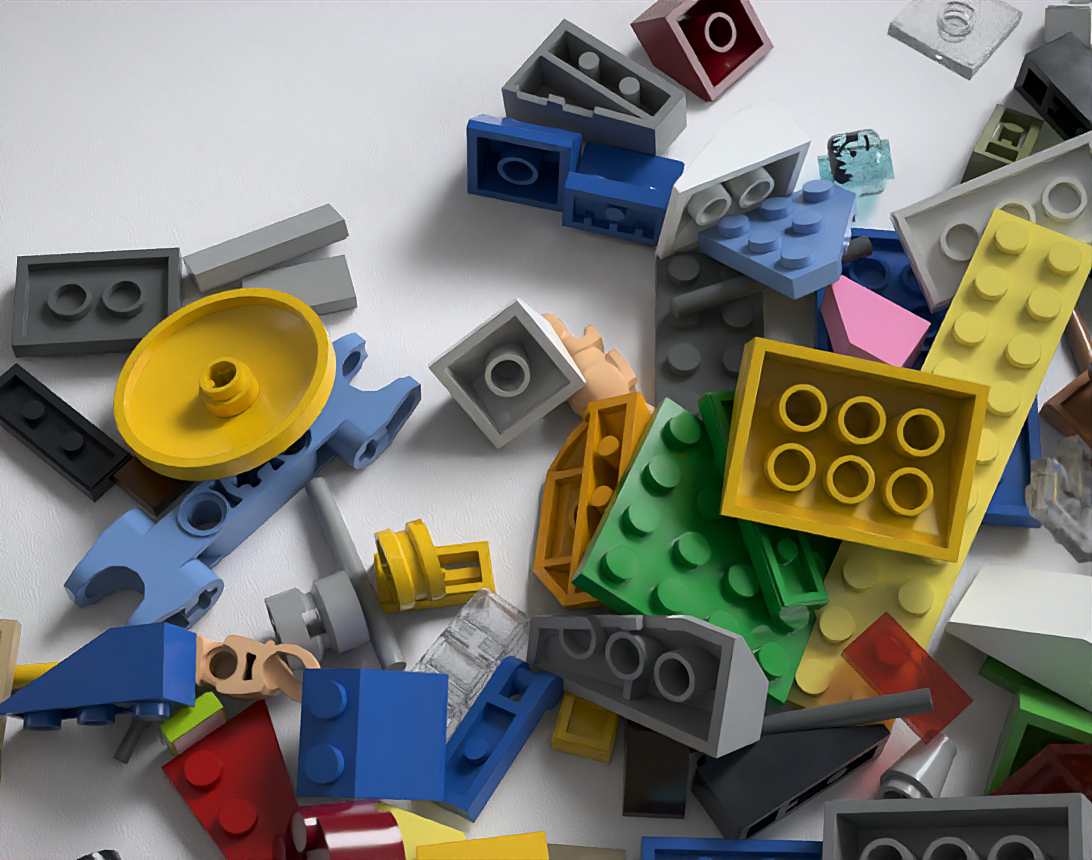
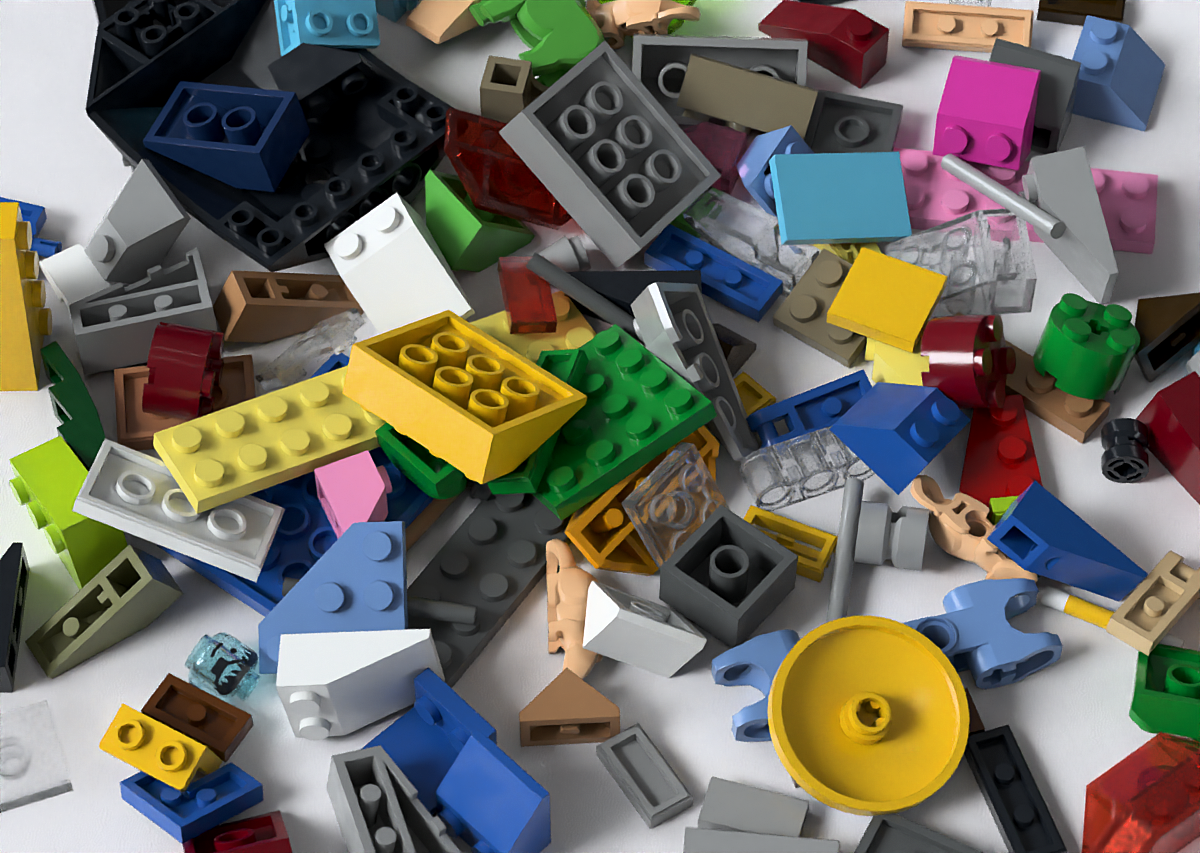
camera: 145 degrees left, 5 degrees down
(410, 565) = (808, 519): yellow wheel -> none
(422, 278) = (644, 776): none -> light grey tile
(458, 471) = (728, 577): none -> dark grey brick
(523, 273) = (568, 714): none -> medium nougat slope
(556, 510) = (673, 502): none -> clear plate
(783, 43) = (199, 807): none -> blue plate
(831, 116) = (199, 716): none -> reddish brown plate
(843, 74) = (157, 749): none -> yellow bracket

